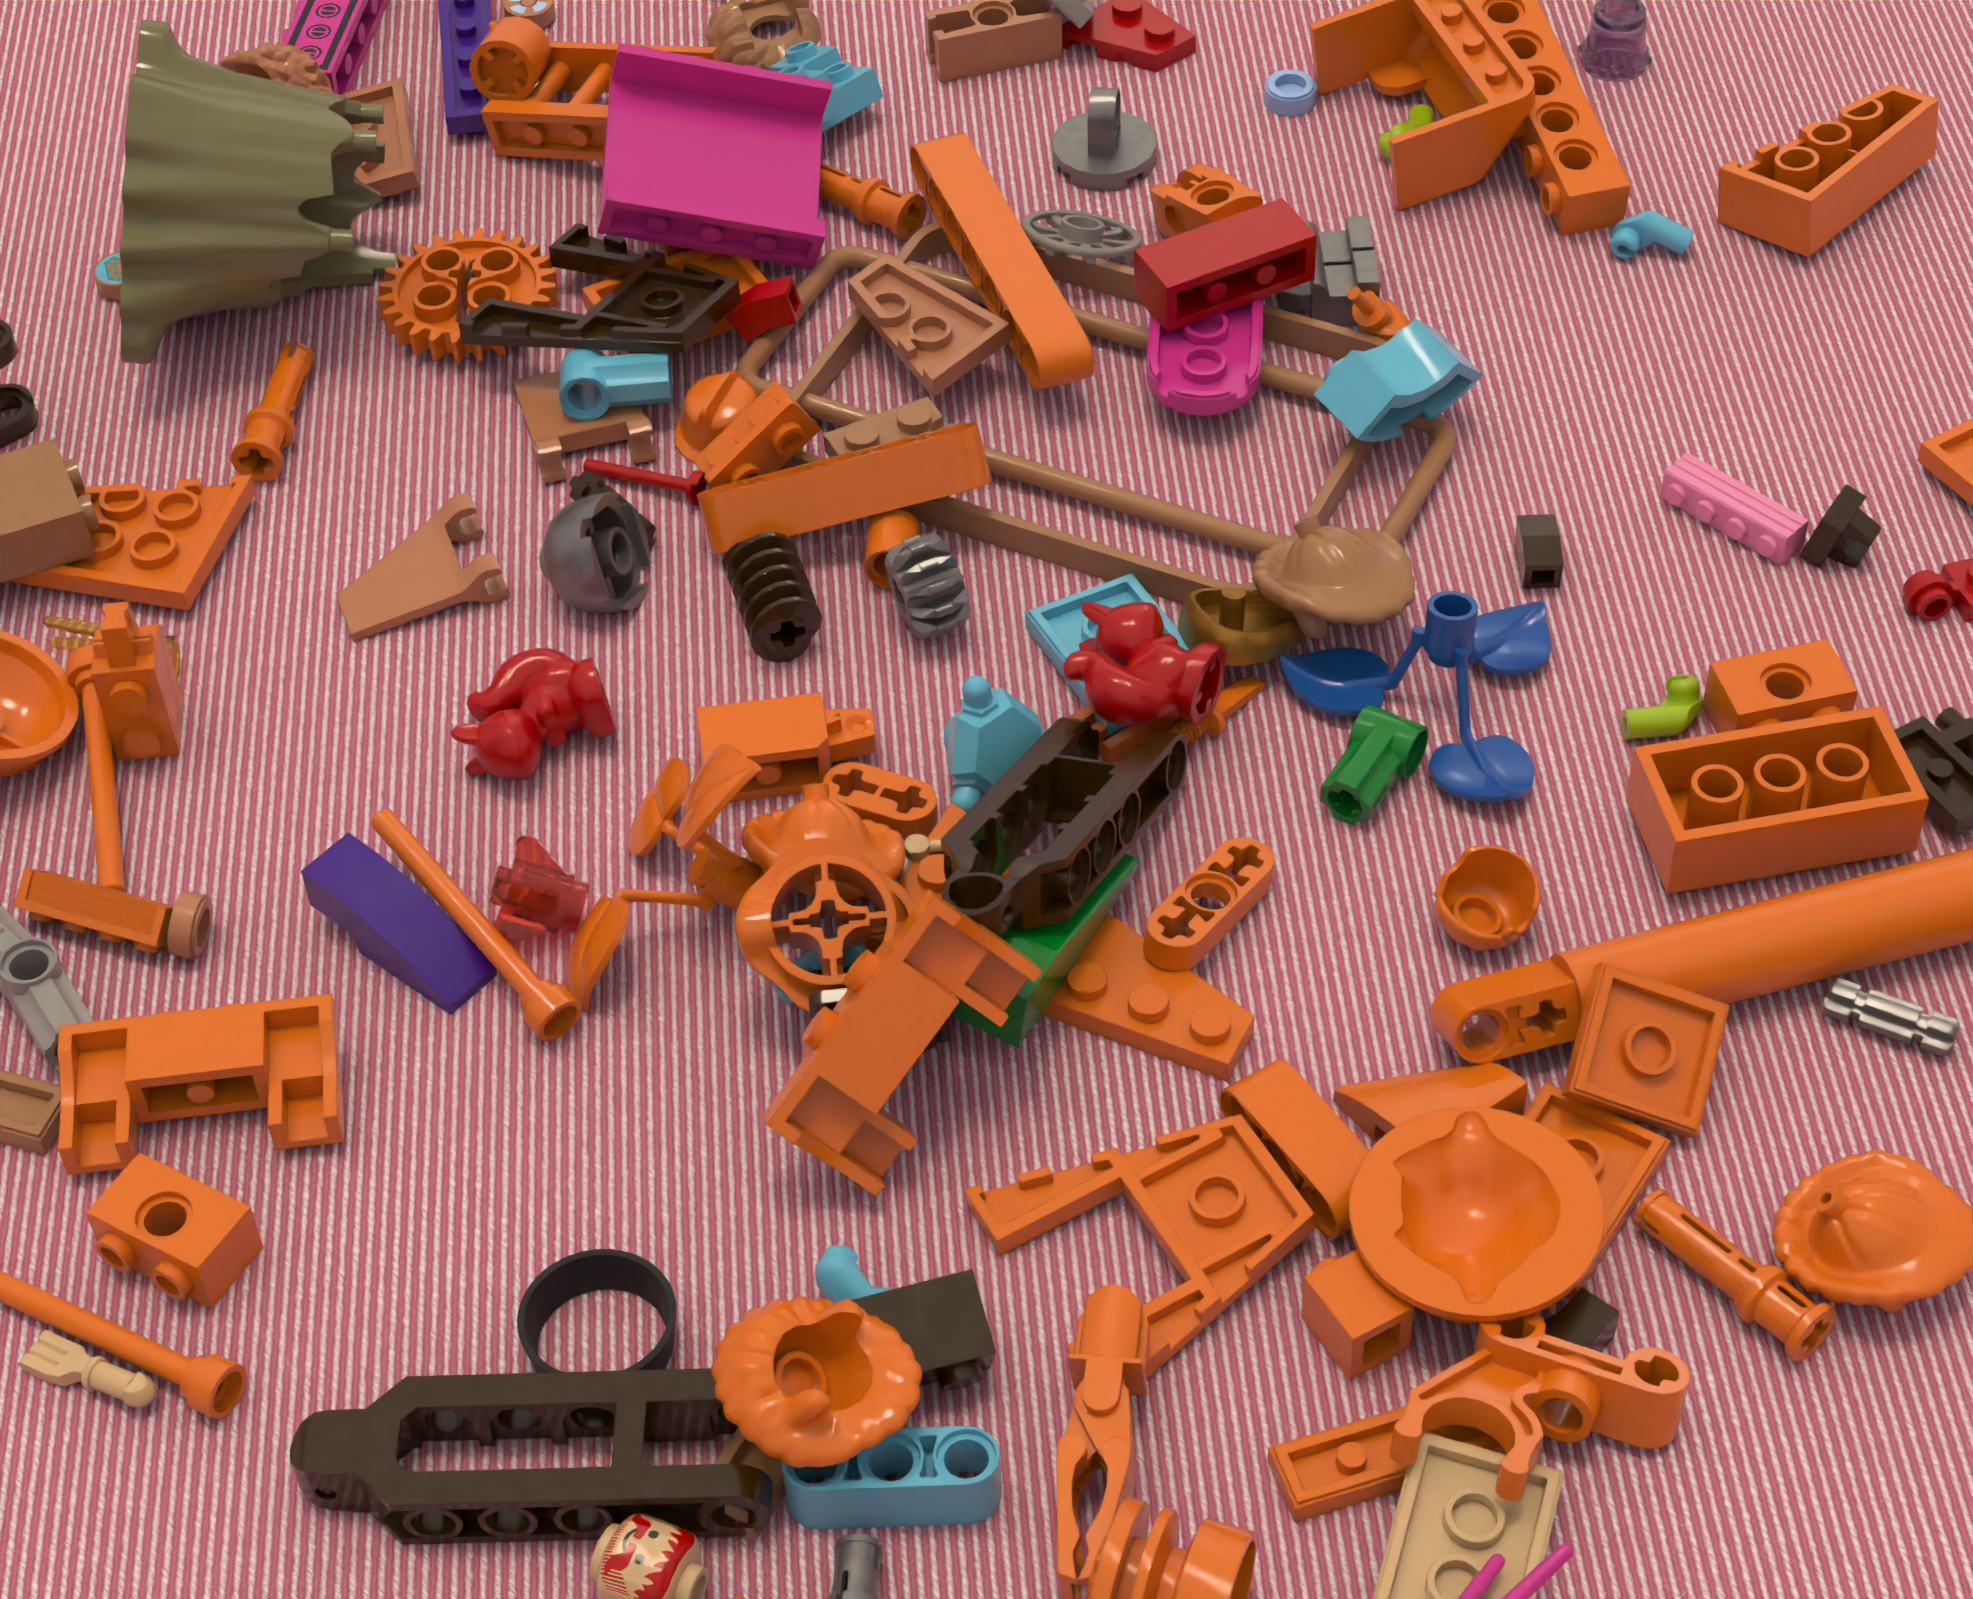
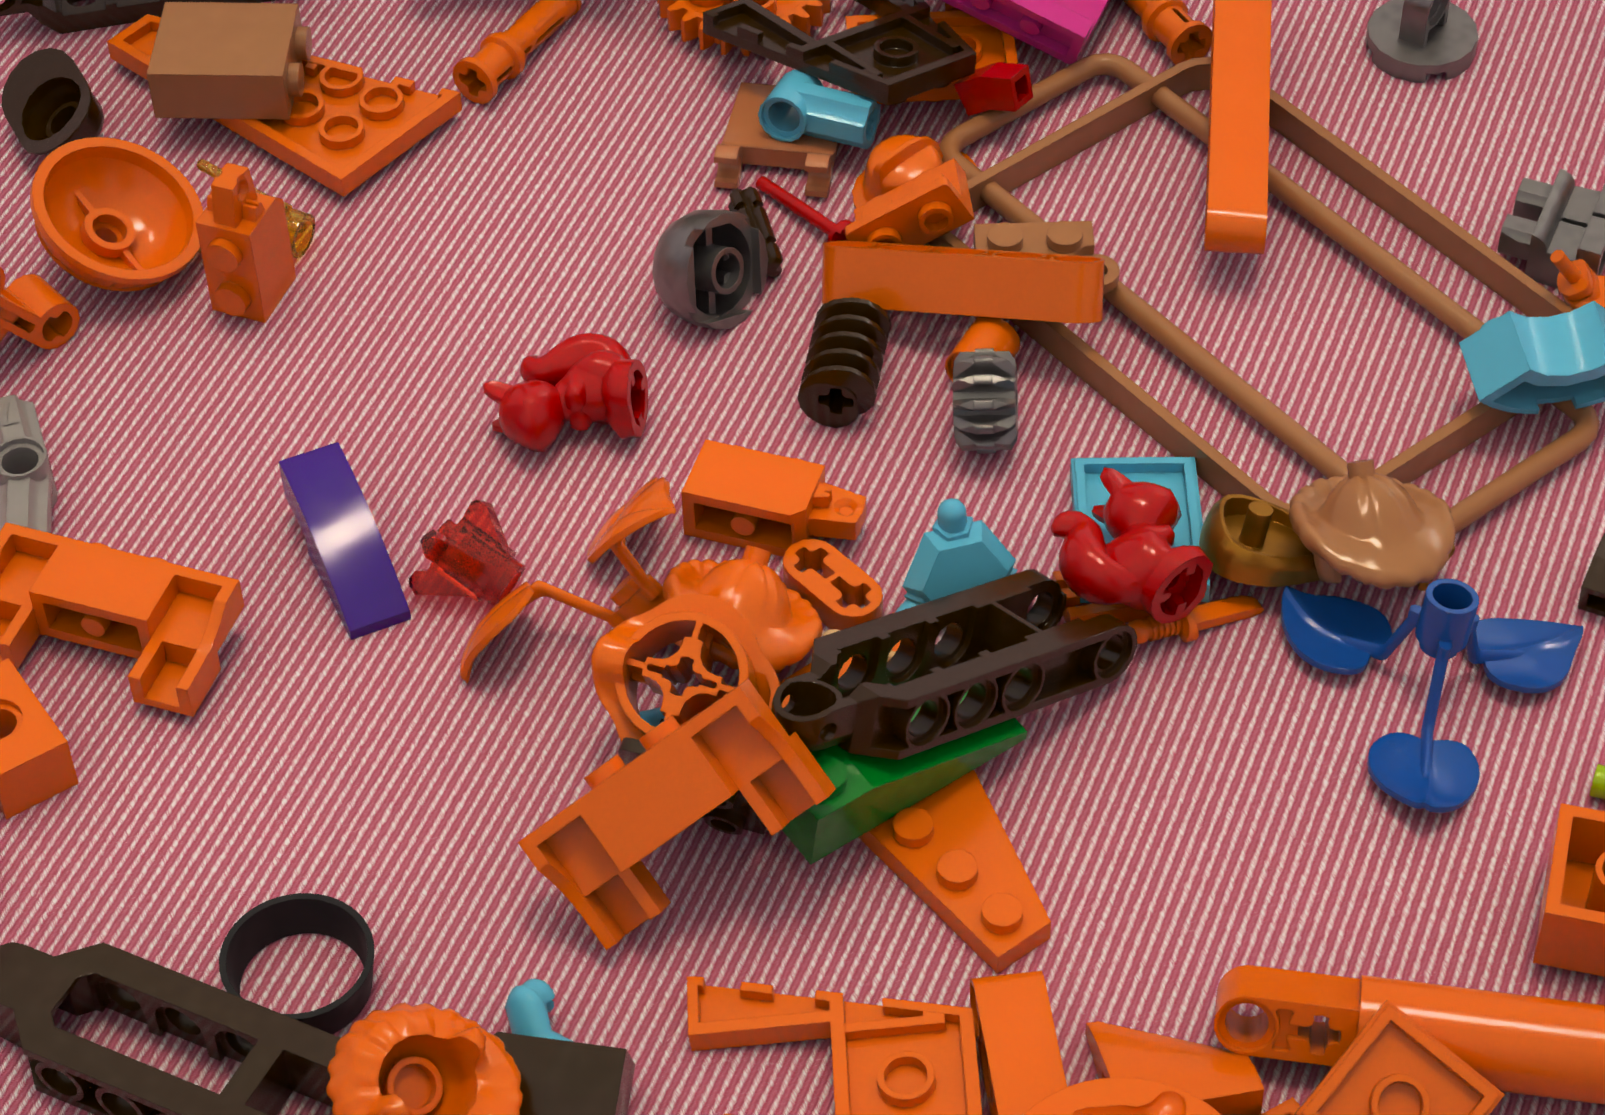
camera: 25 degrees right, 0 degrees up
(94, 907) = (114, 434): orange piece -> none
(101, 772) = (169, 349): orange piece -> none
(190, 925) = (176, 476): nougat tile -> none
(423, 575) = (558, 234): nougat flag -> none
(547, 1006) = (426, 663): orange piece -> none
(925, 322) = (1134, 150): nougat wing -> none
(1081, 235) = (1341, 111): light grey wheel -> none
(1199, 198) = (1479, 135): orange piece -> none
(1205, 926) = (1057, 820): orange beam -> none
(1208, 363) = (1399, 250): dark pink tile -> none
(1224, 264) = (1445, 186): red brick -> none
(1376, 754) = (1324, 715): green piece -> none
(1487, 897) = (1338, 896): orange hair -> none

